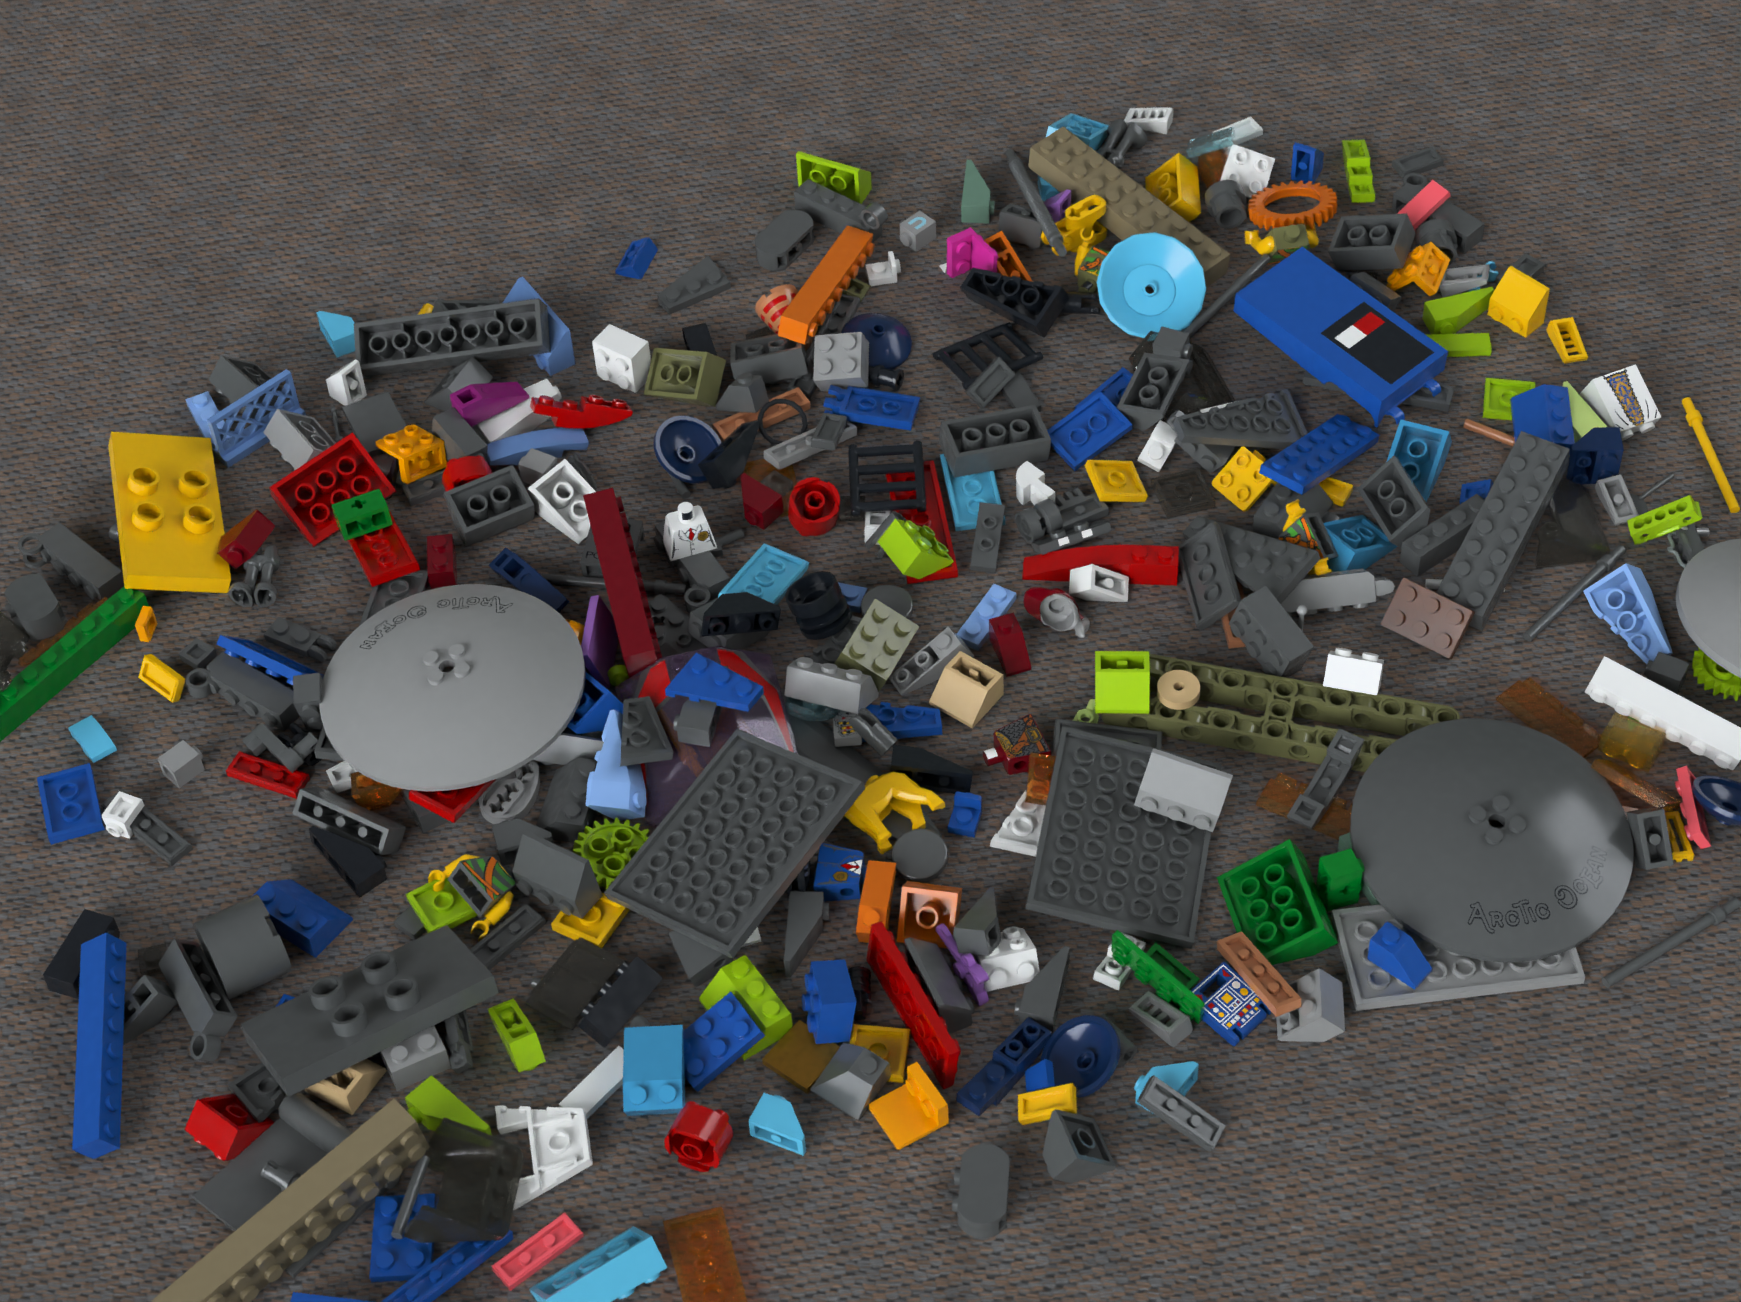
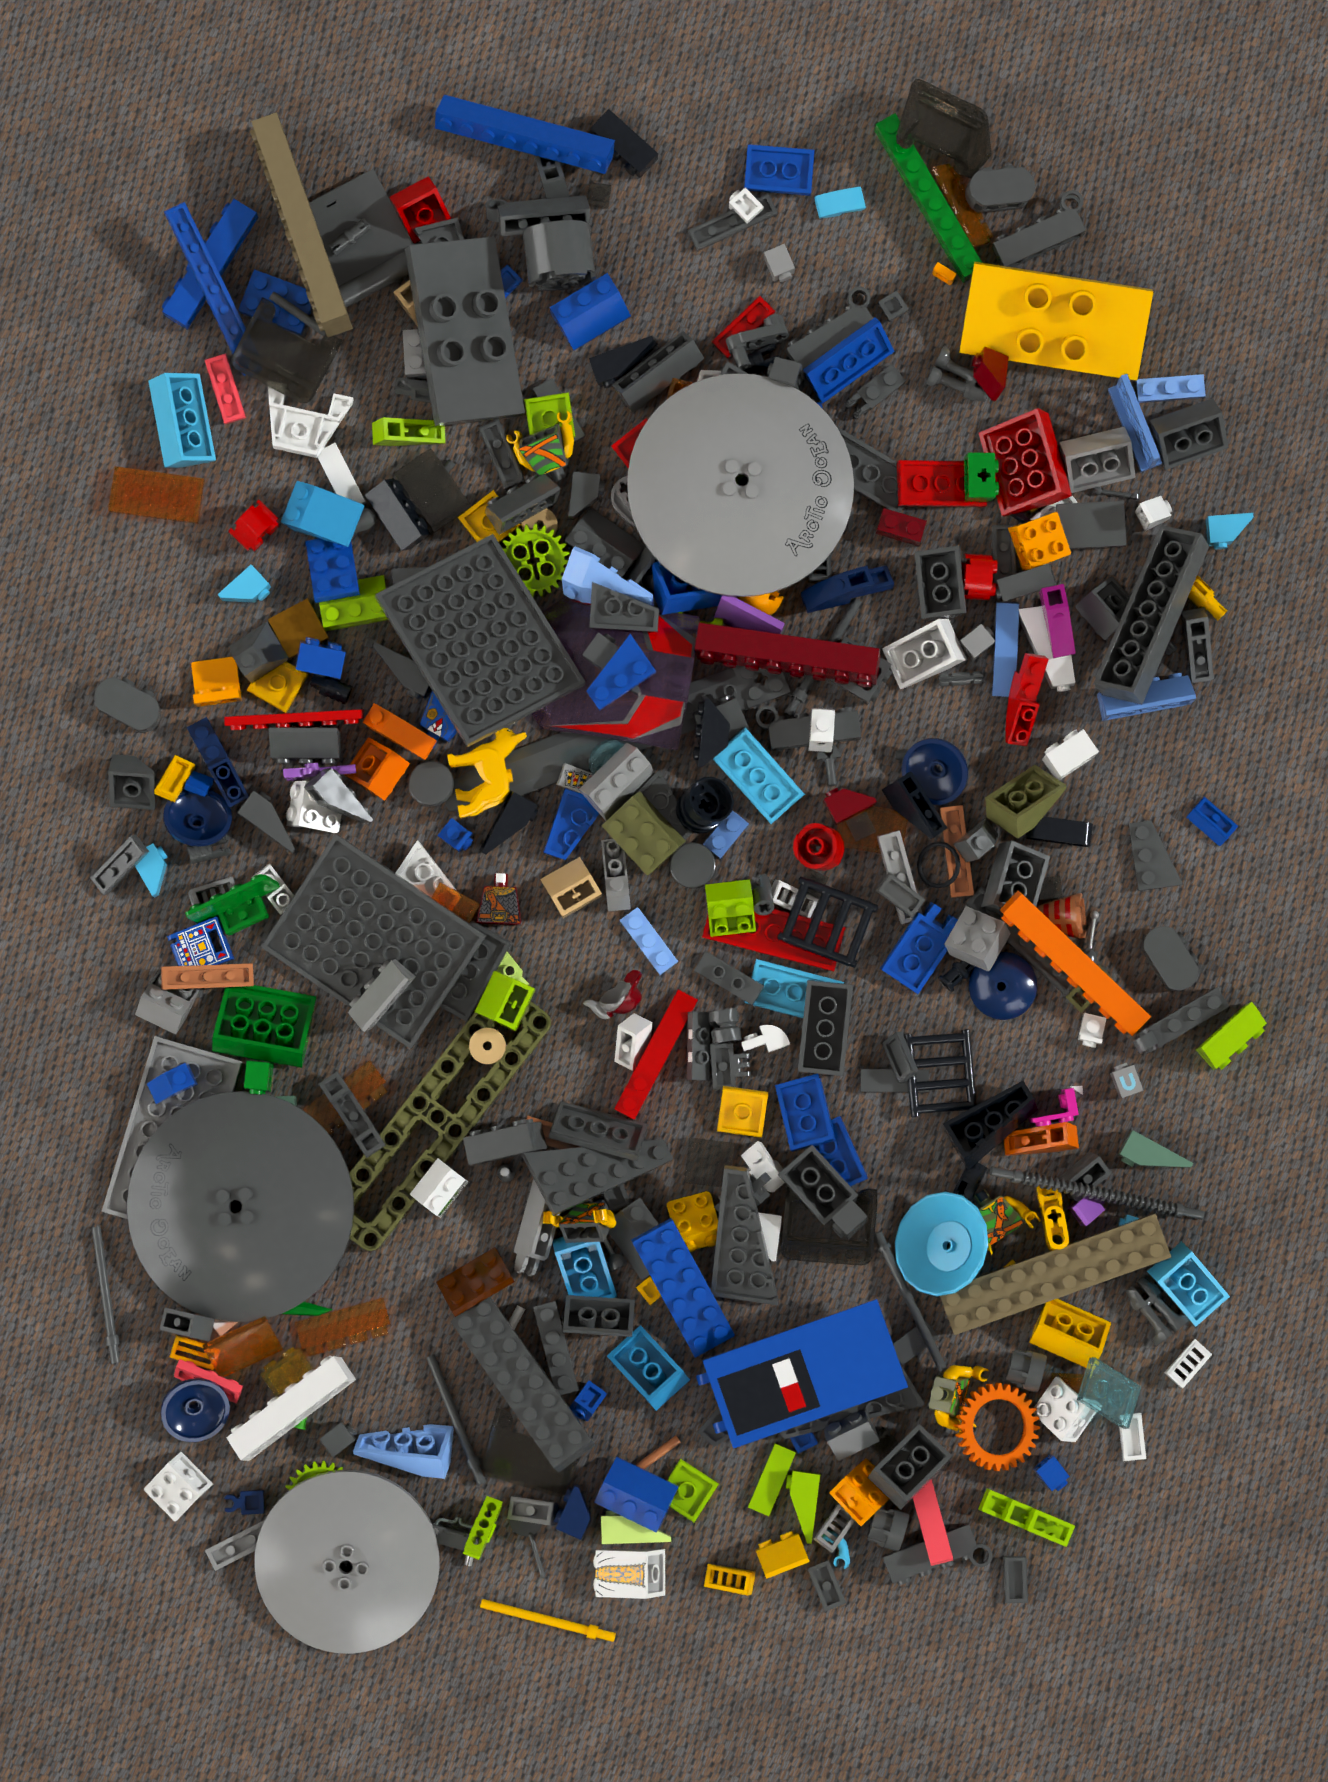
camera: 110 degrees right, 35 degrees up
(161, 678) = (878, 270): yellow tile -> none
(433, 1102) = (364, 359): lime slope -> none
(873, 731) = (554, 795): dark grey hinge -> none
(1009, 644) = (604, 943): dark red slope -> none

